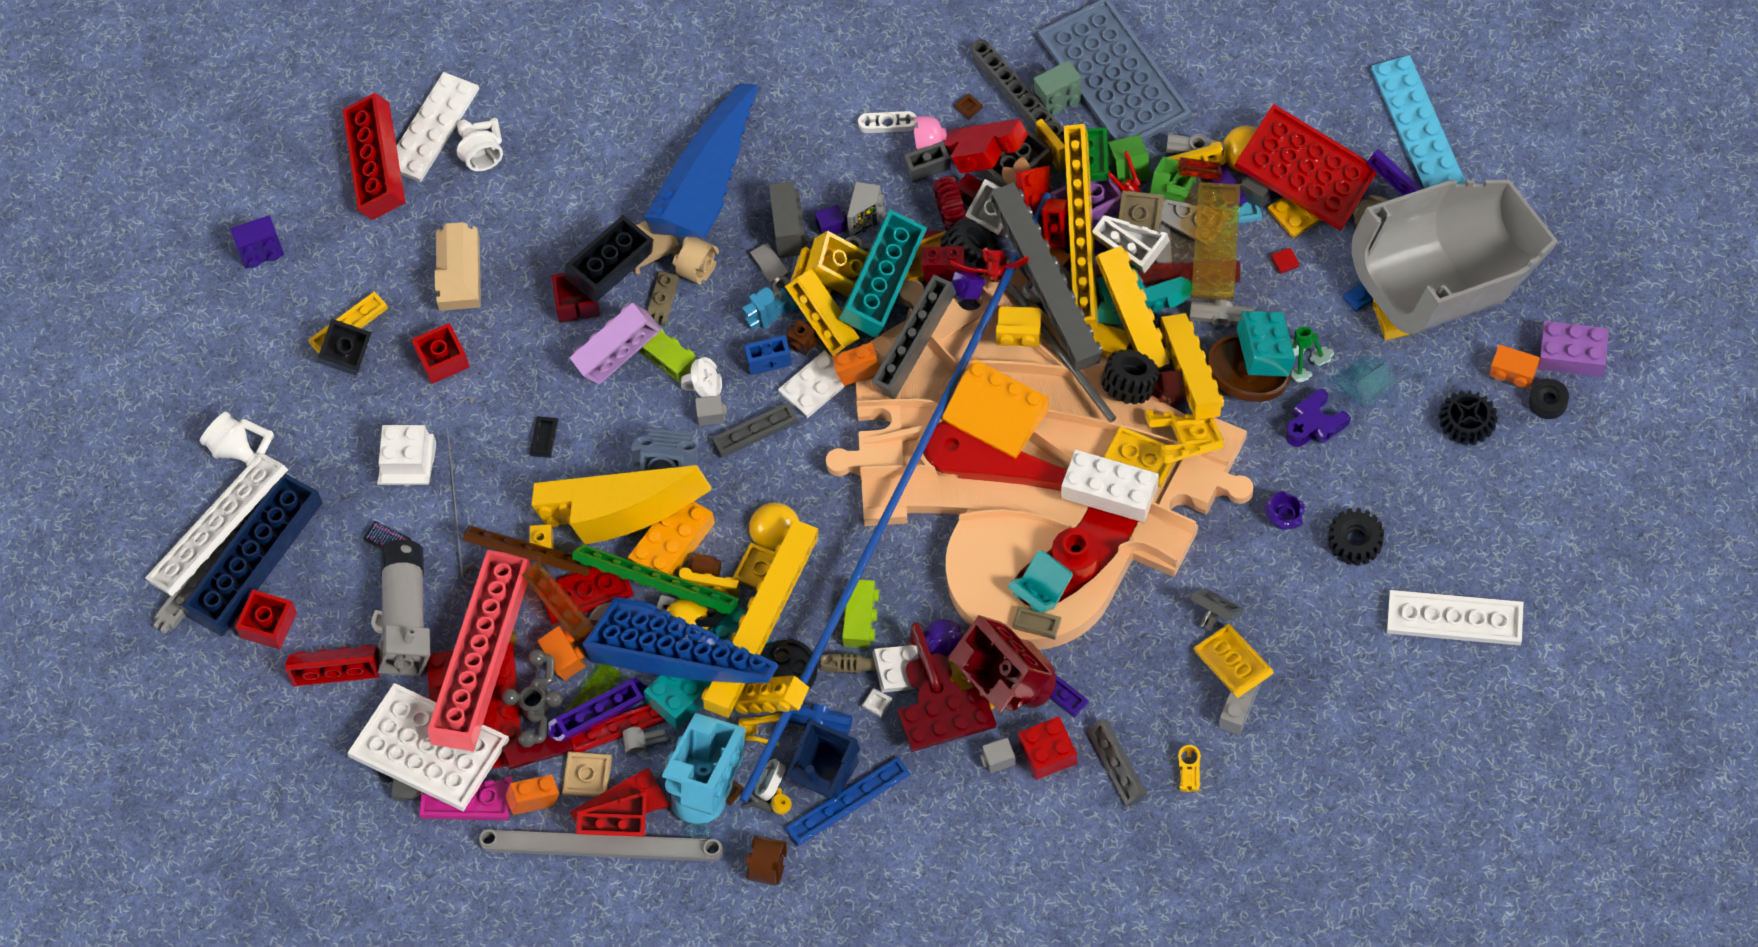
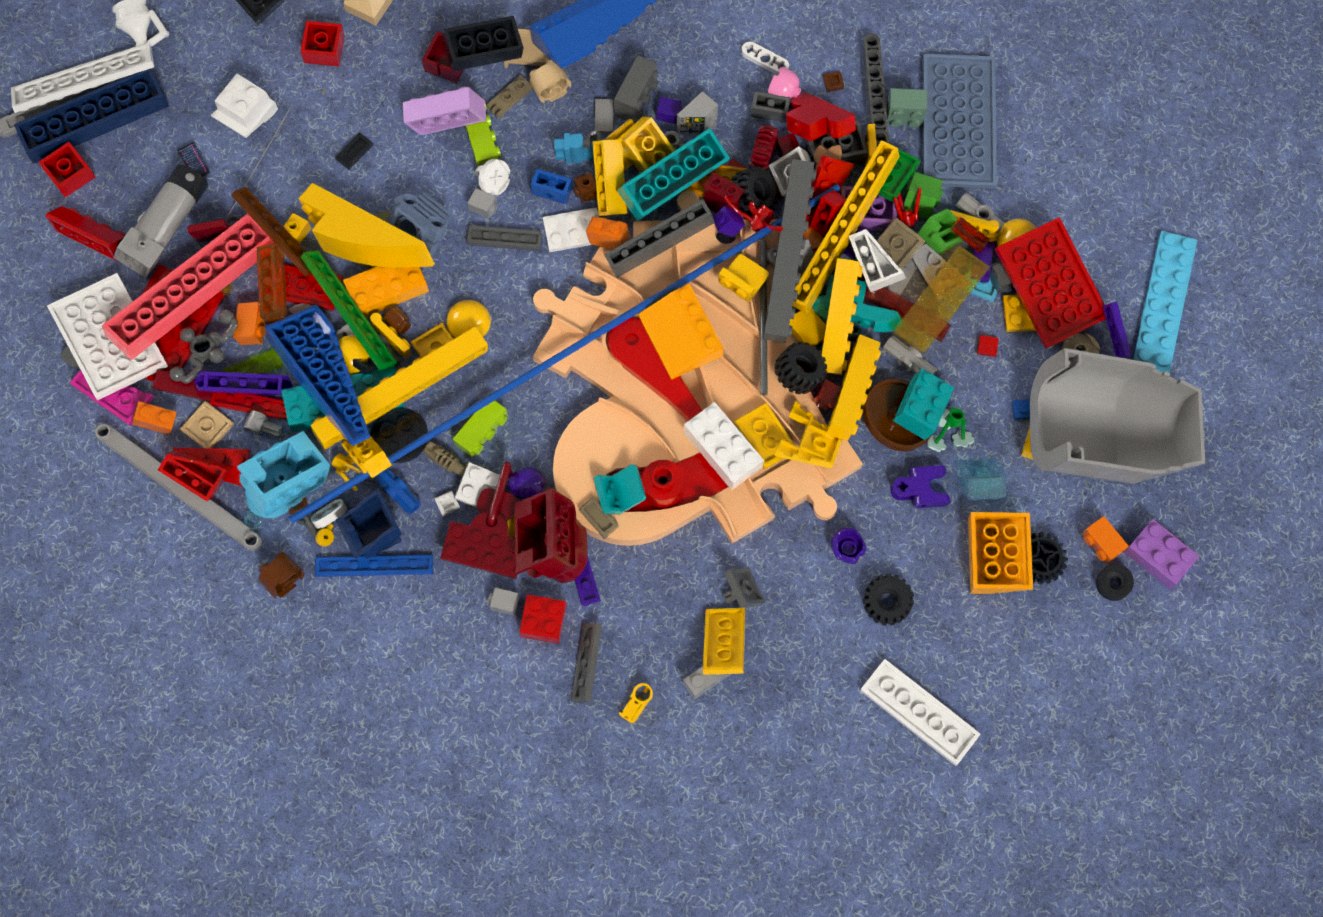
camera: 25 degrees right, 10 degrees up
(459, 589) = (208, 230): none -> dark red tile
(1427, 433) = (999, 552): none -> light orange slope

